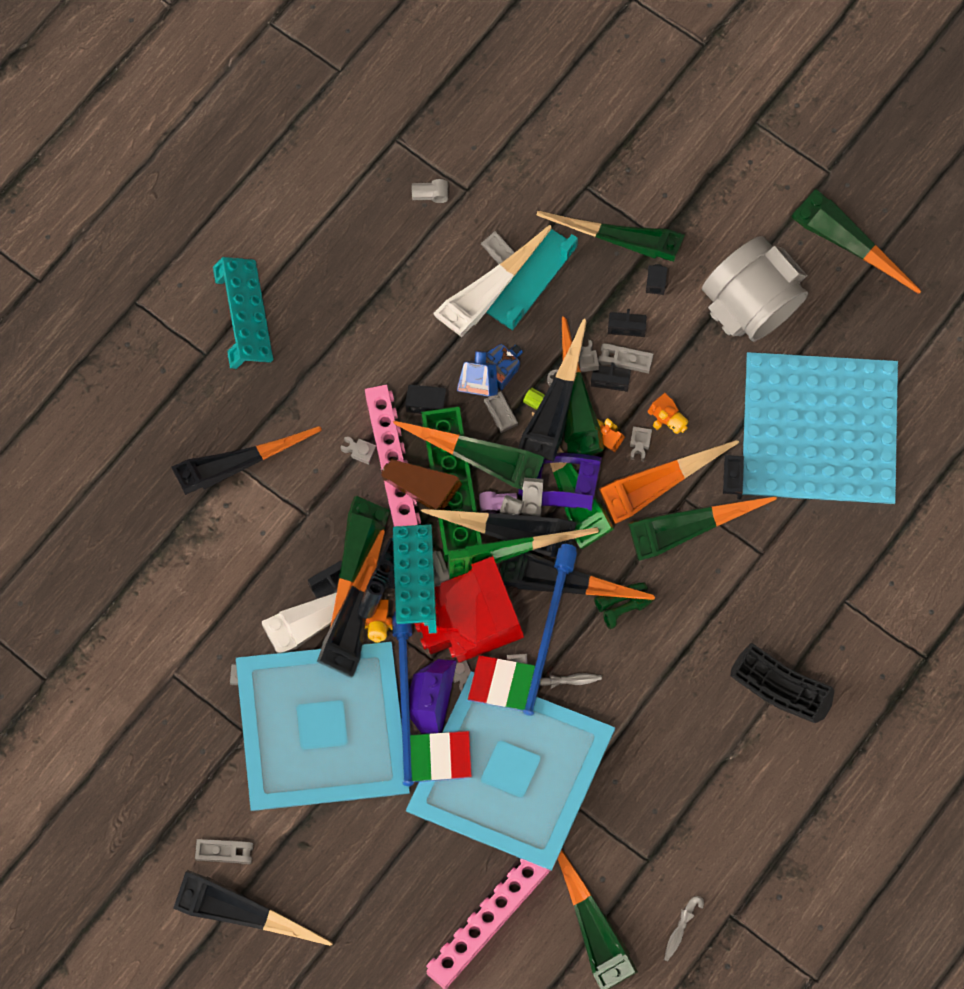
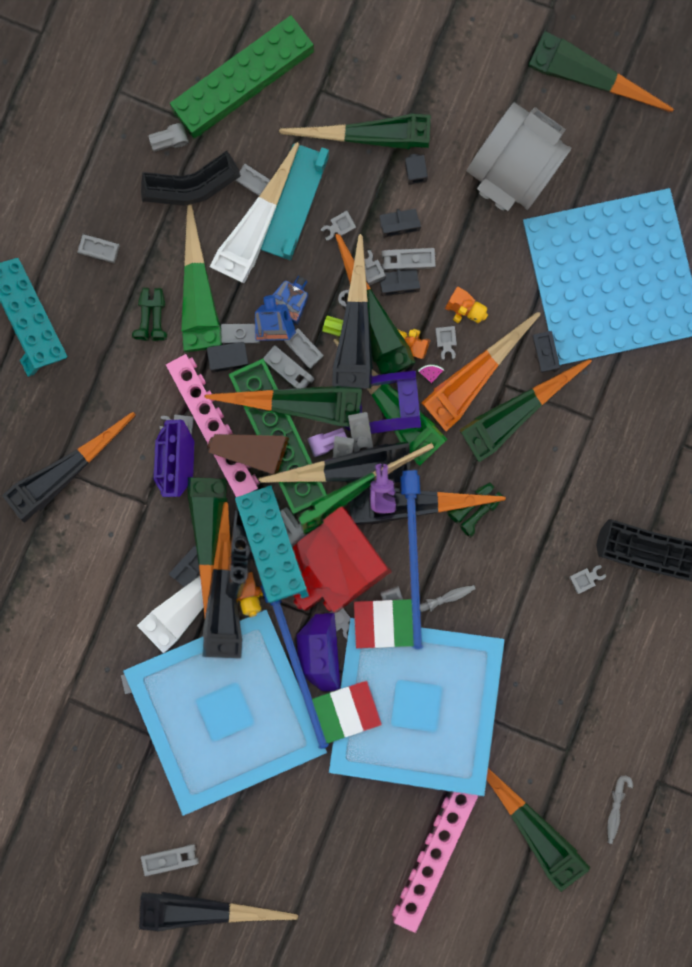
camera: 15 degrees left, 15 degrees up
(333, 271) = (98, 248): none -> light grey plate
(346, 475) = (173, 458): none -> dark purple wedge
(363, 333) = (146, 305): none -> dark green piece
(410, 355) = (199, 315): none -> green plate
(438, 240) = (191, 187): none -> black piece
(443, 380) = (238, 333): none -> light grey plate
(478, 424) = (287, 368): none -> light grey plate
(516, 155) = (242, 77): none -> green brick
(535, 551) = (379, 500): none -> medium lavender piece
(570, 310) = (341, 224): none -> light grey plate
(617, 467) = (430, 372): none -> dark pink tile
(711, 699) = (584, 580): none -> light grey plate

